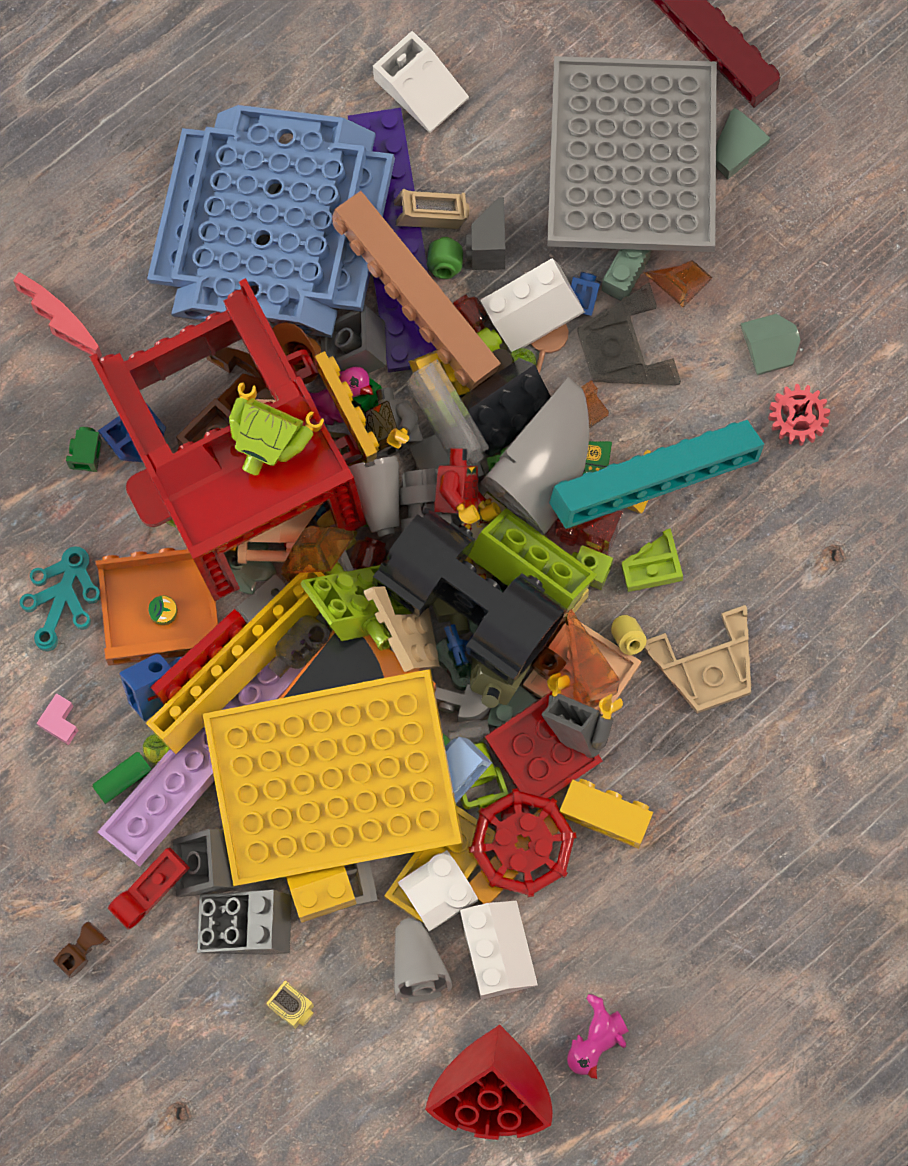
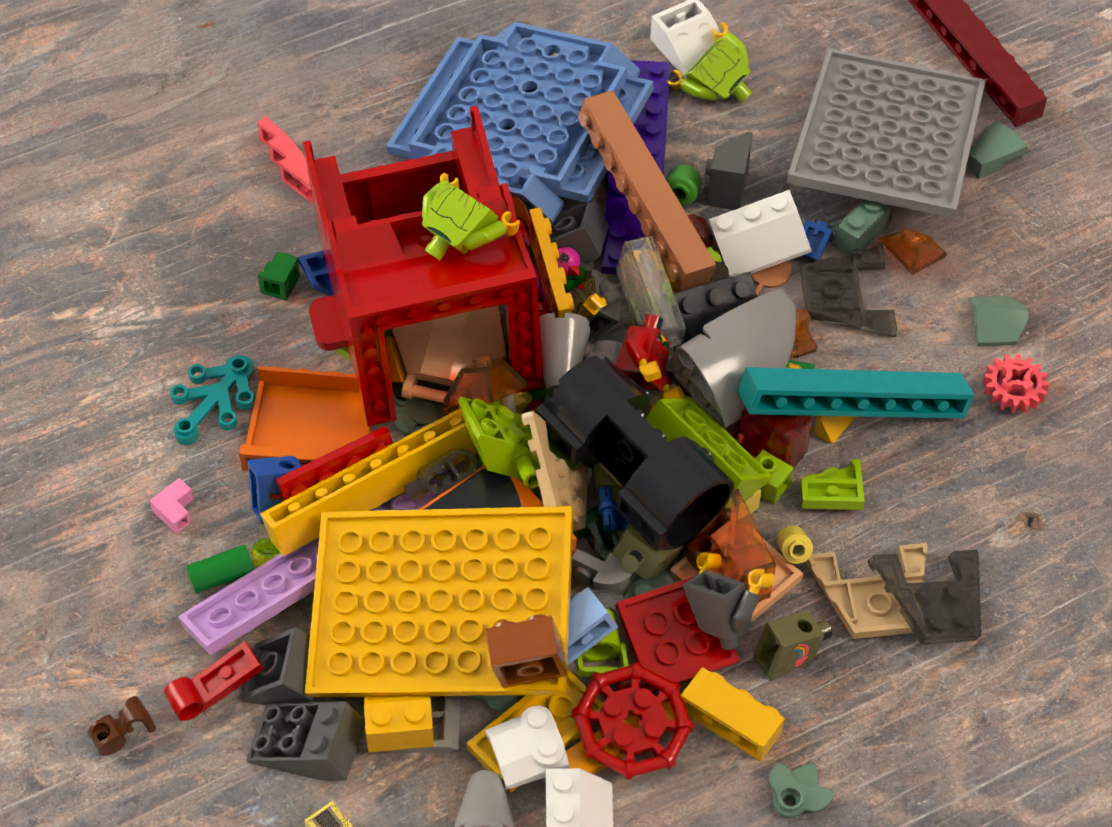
camera: 10 degrees right, 20 degrees down
(163, 610) = (313, 428): tile -> none
(424, 822) = (526, 651): none -> dark orange brick
(432, 209) = (678, 141): tan window -> none
(453, 114) = (718, 70): none -> lime torso
(645, 735) = (790, 643): none -> olive torso
(676, 866) = (800, 787): none -> sand green plate
(770, 669) = (937, 609): none -> clear smoke wing

